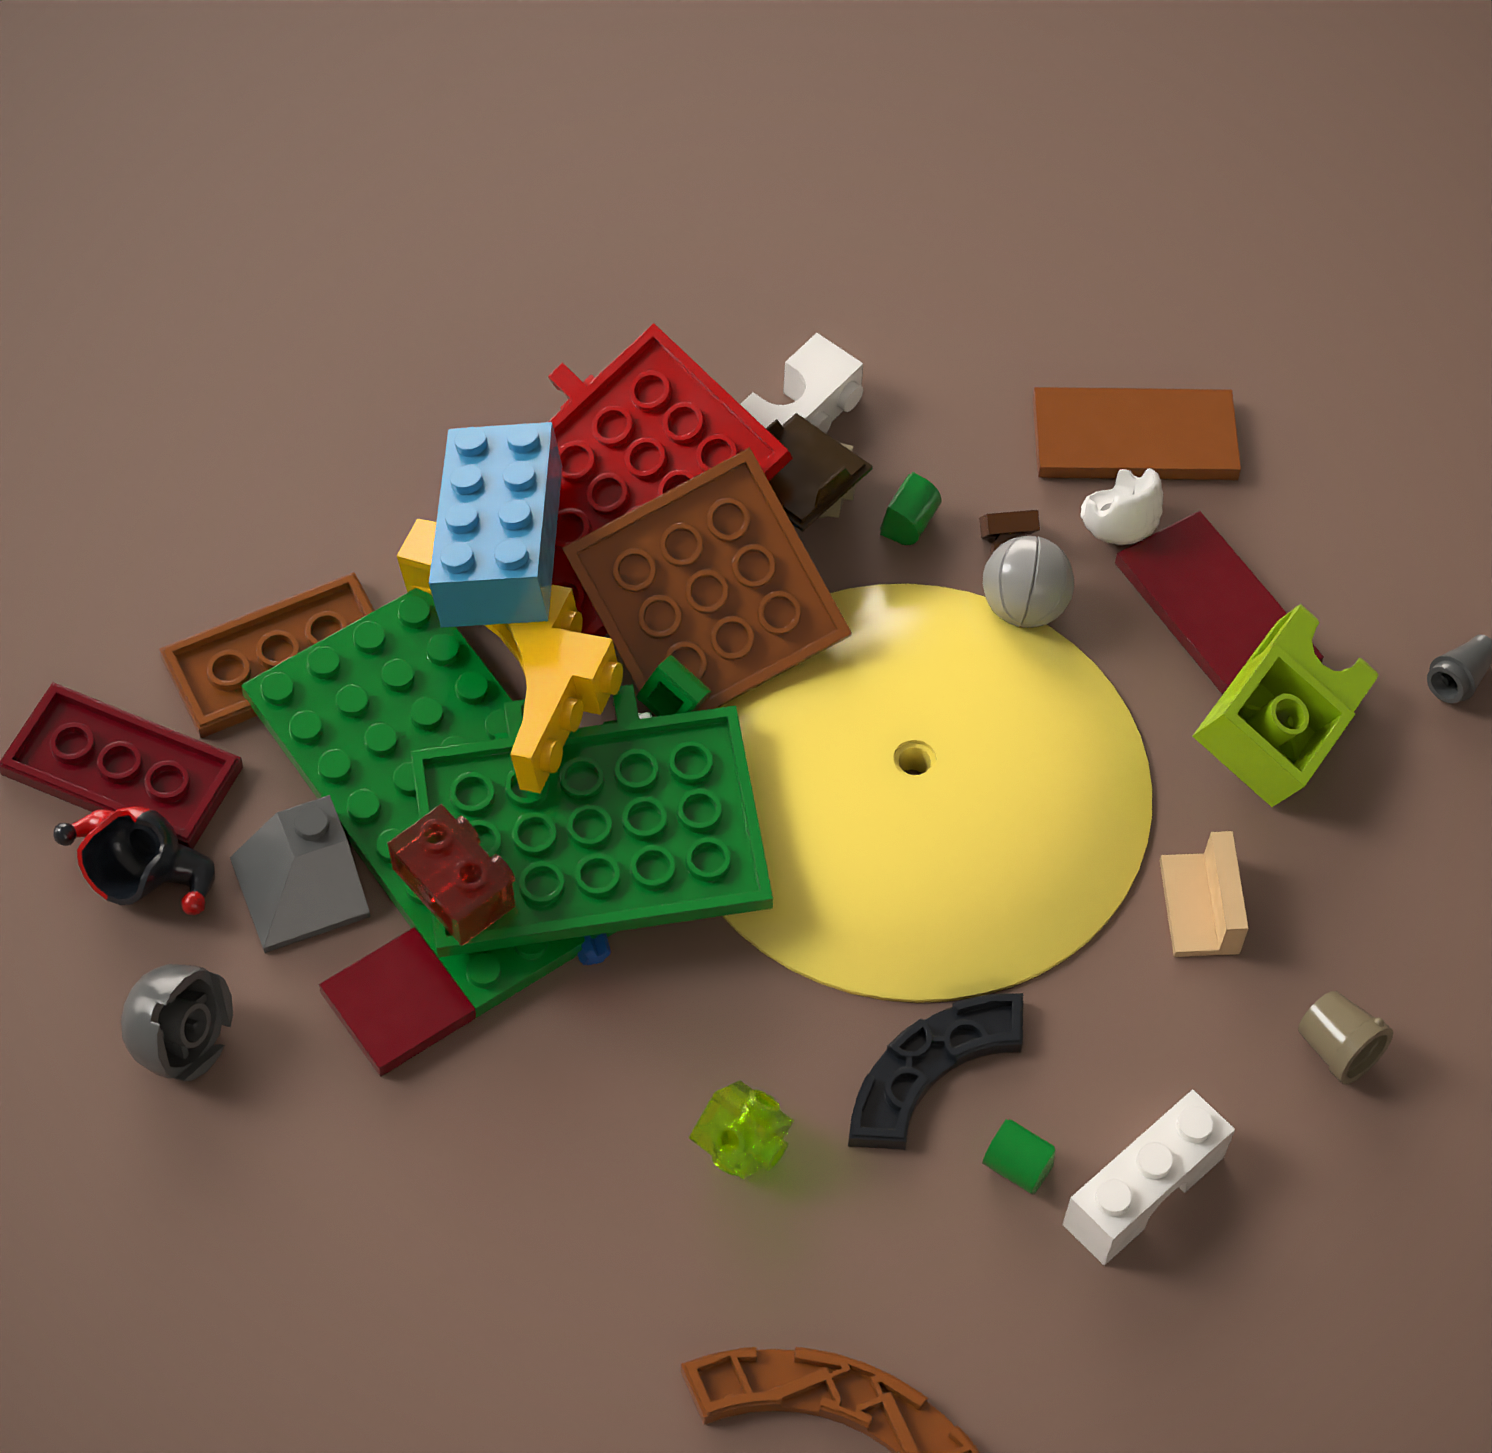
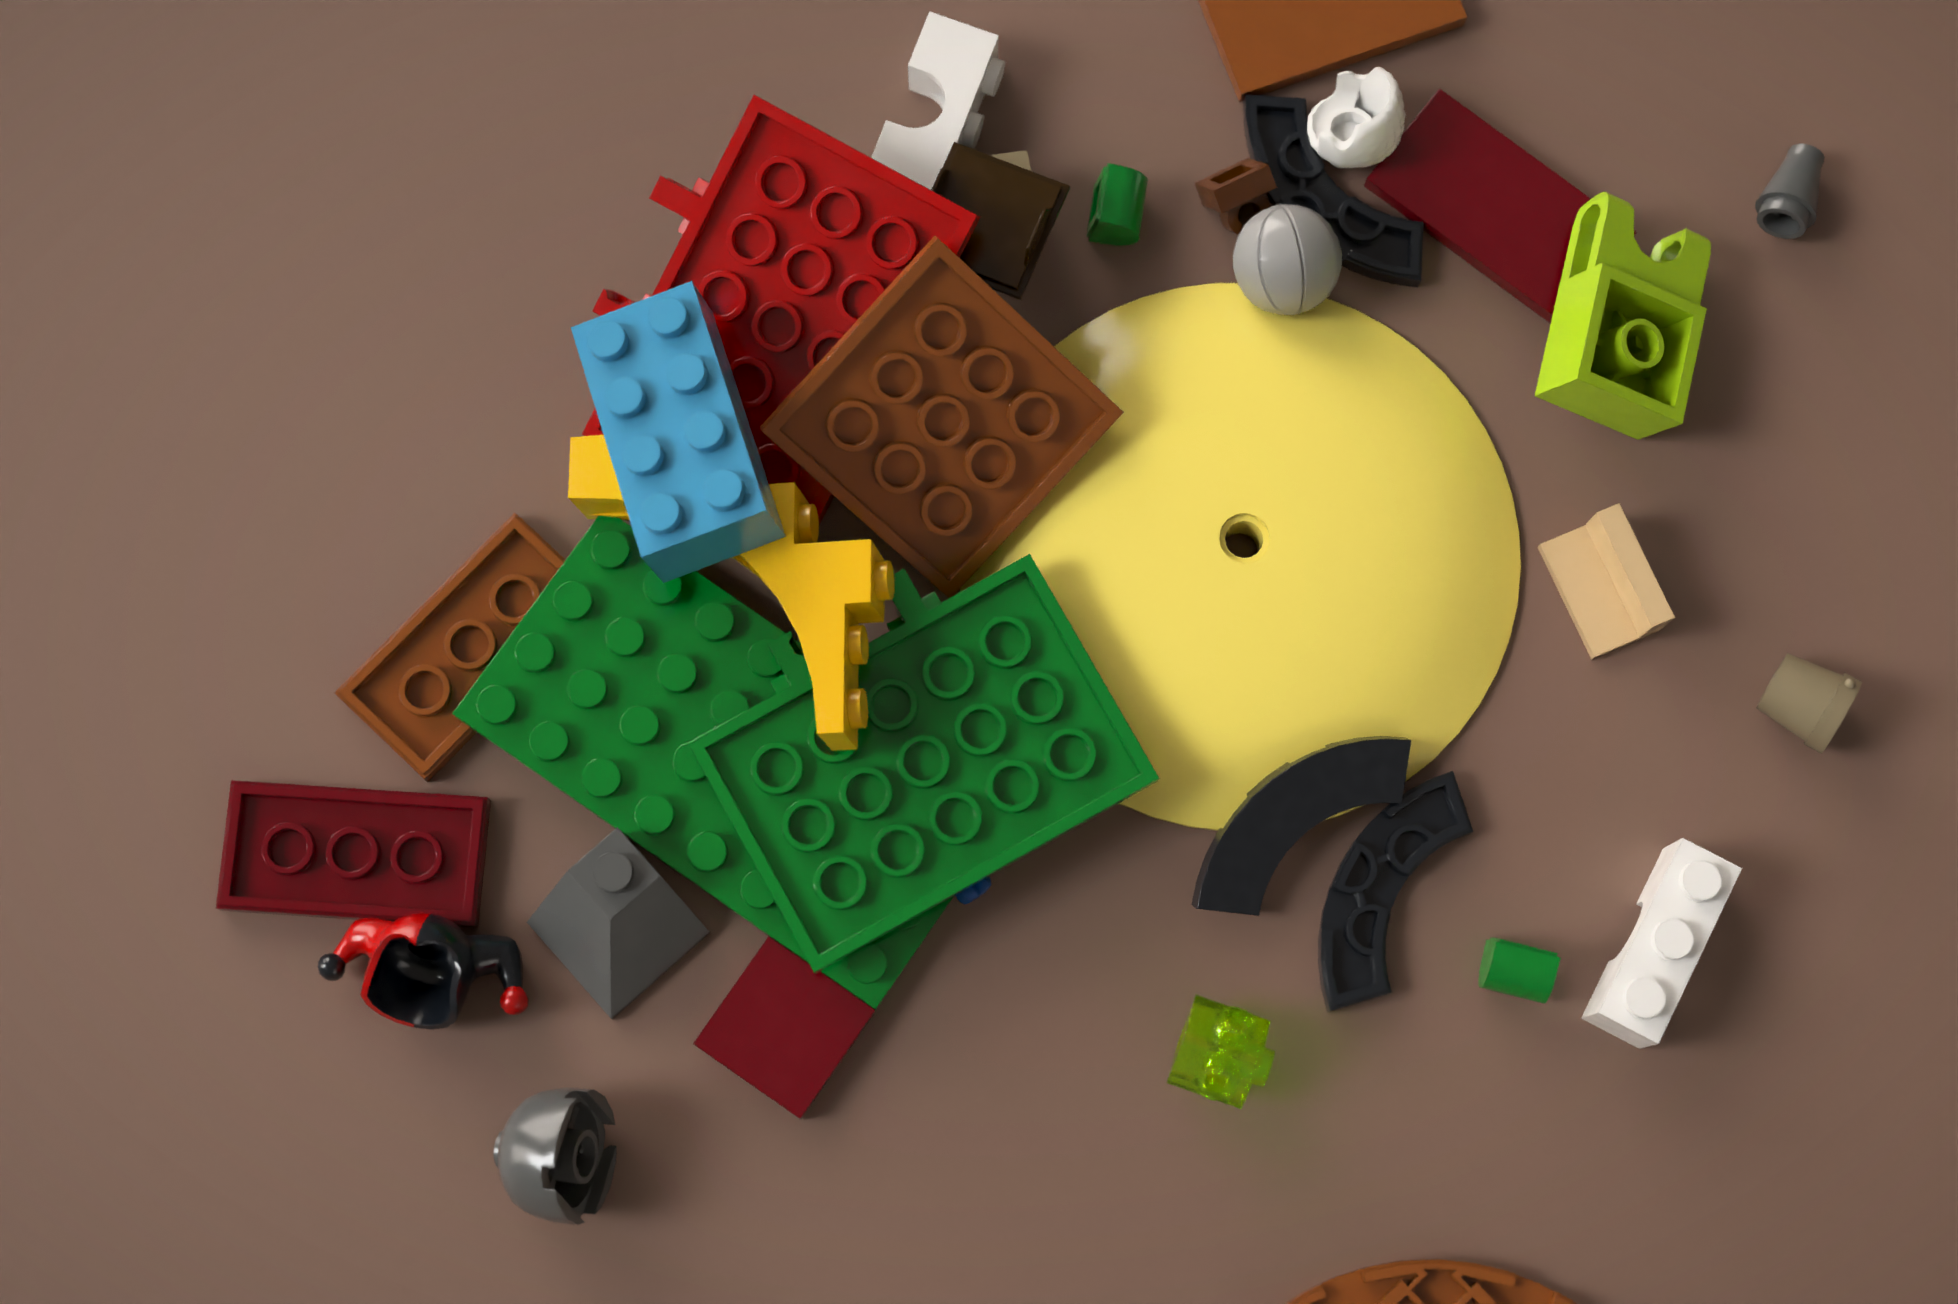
camera: 20 degrees left, 20 degrees up
(453, 873) = (803, 887): clear red brick -> none
(673, 689) = (950, 556): green brick -> none
(875, 967) = (1290, 805): none -> black tile
(1097, 593) = (1369, 240): none -> black tile

